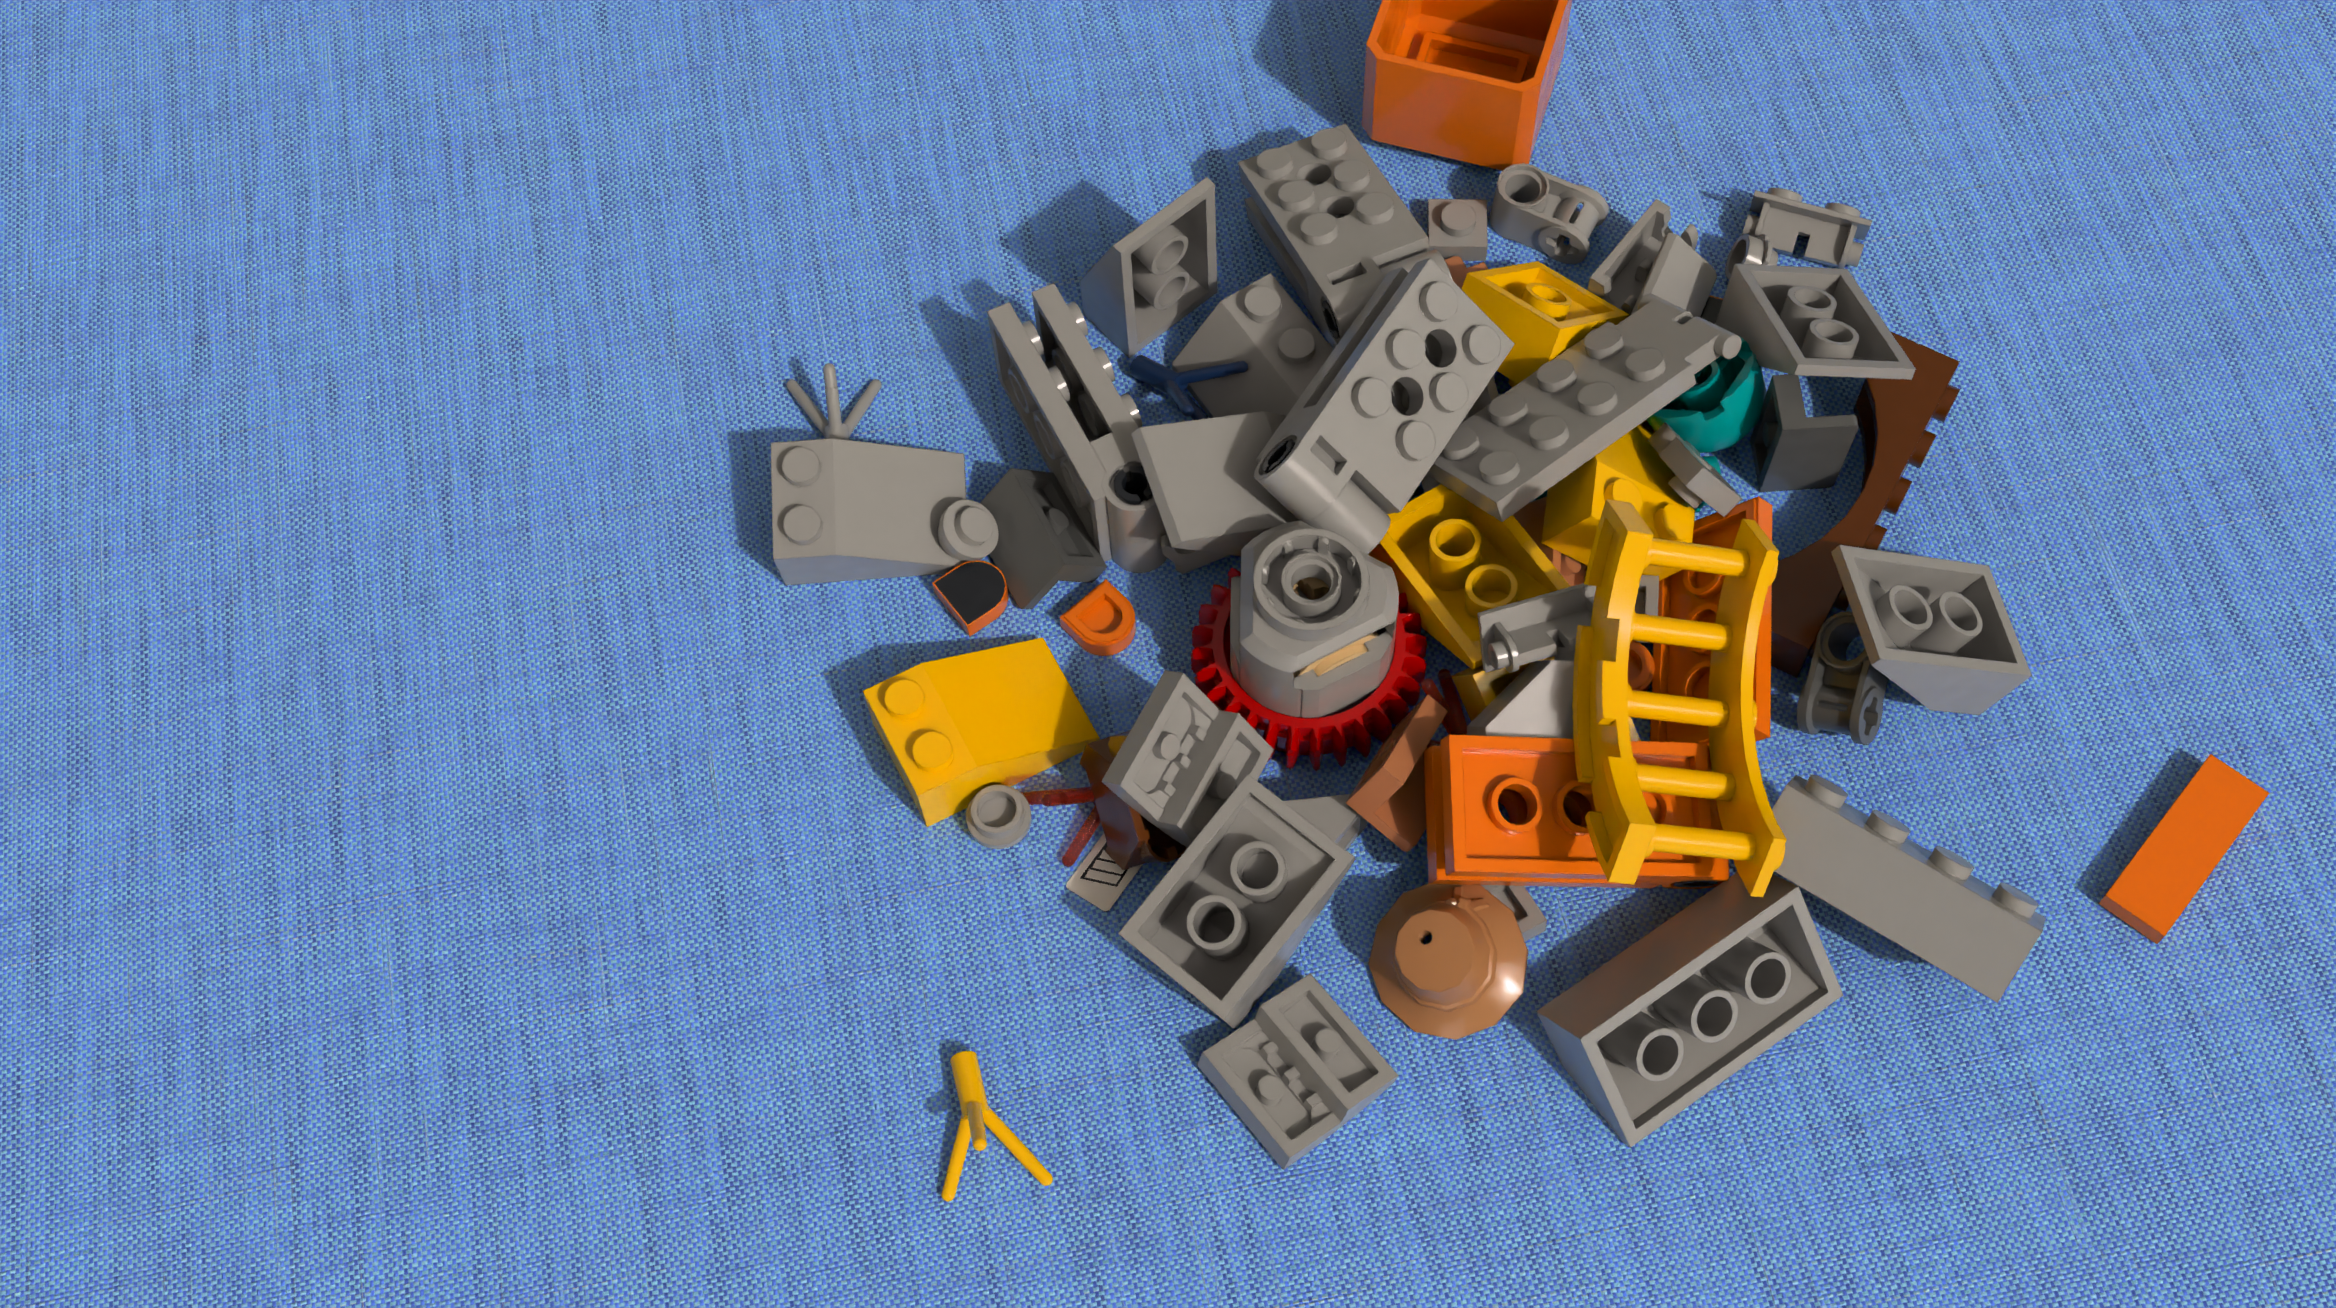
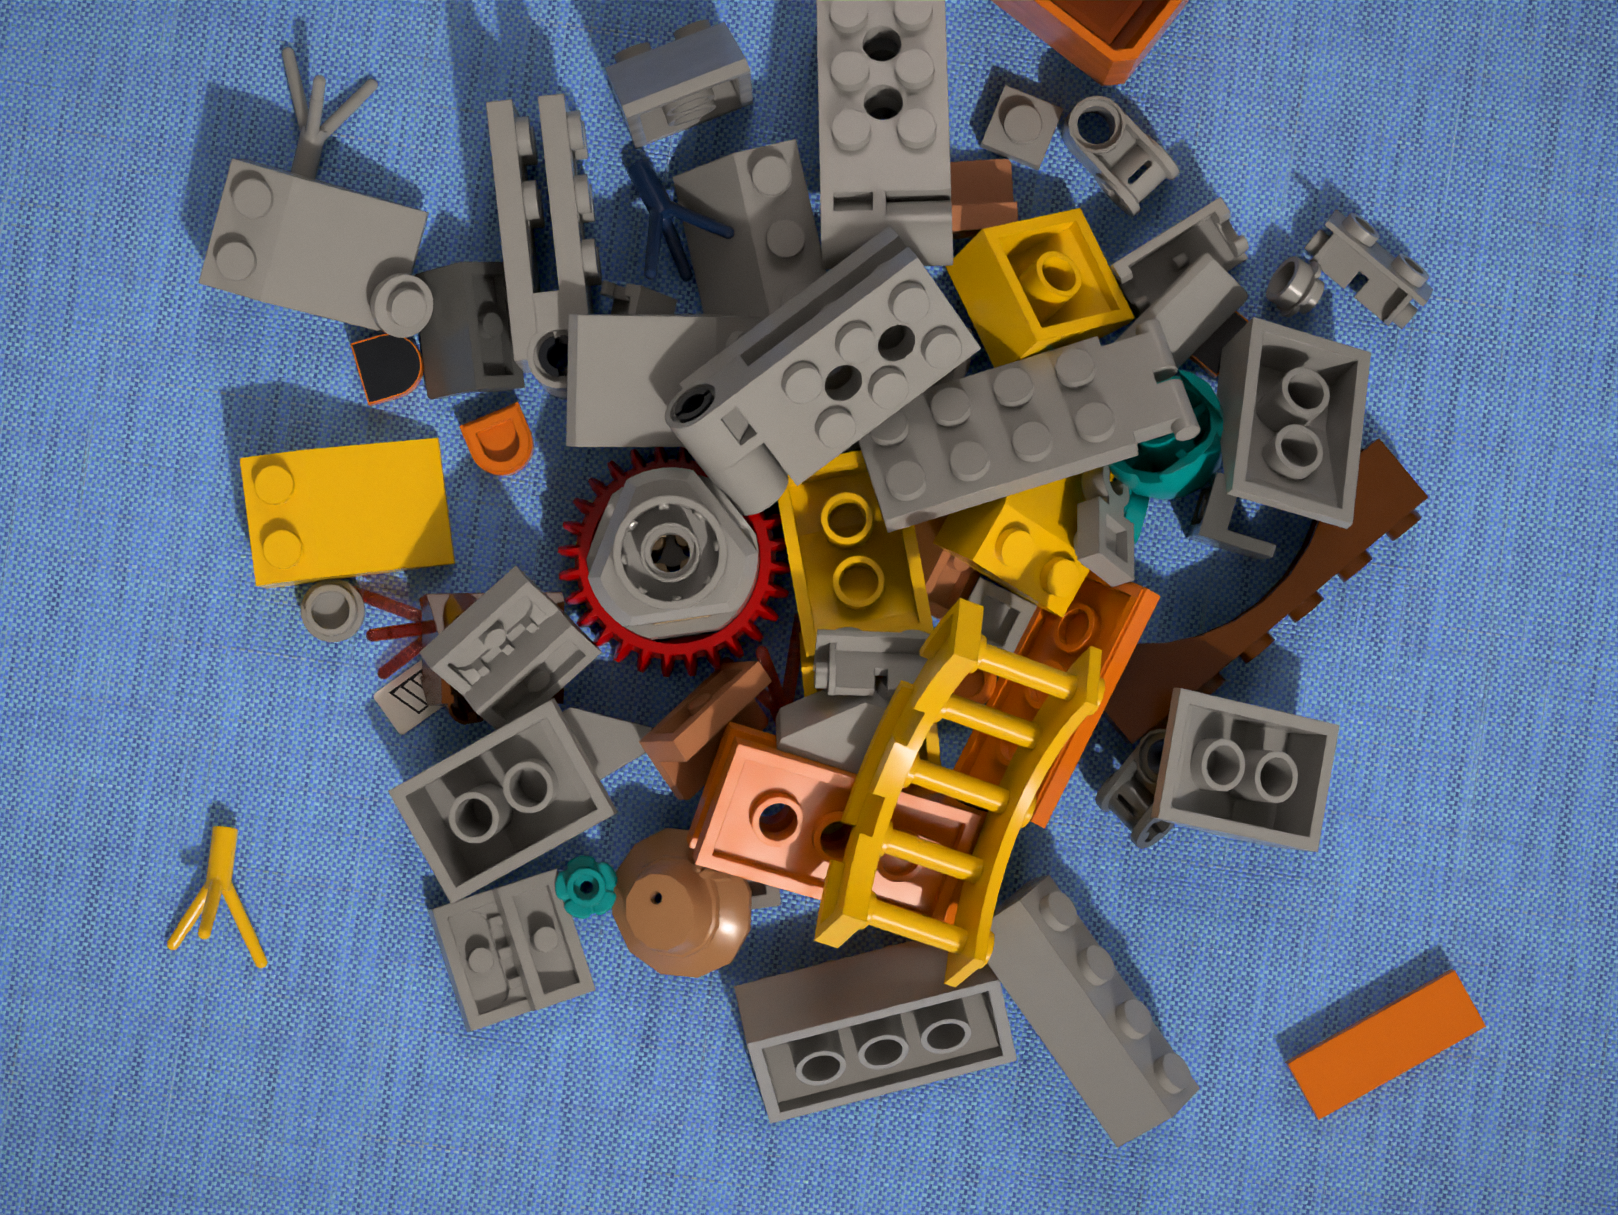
camera: 15 degrees right, 25 degrees up
(1353, 996) = (599, 899): none -> teal plate

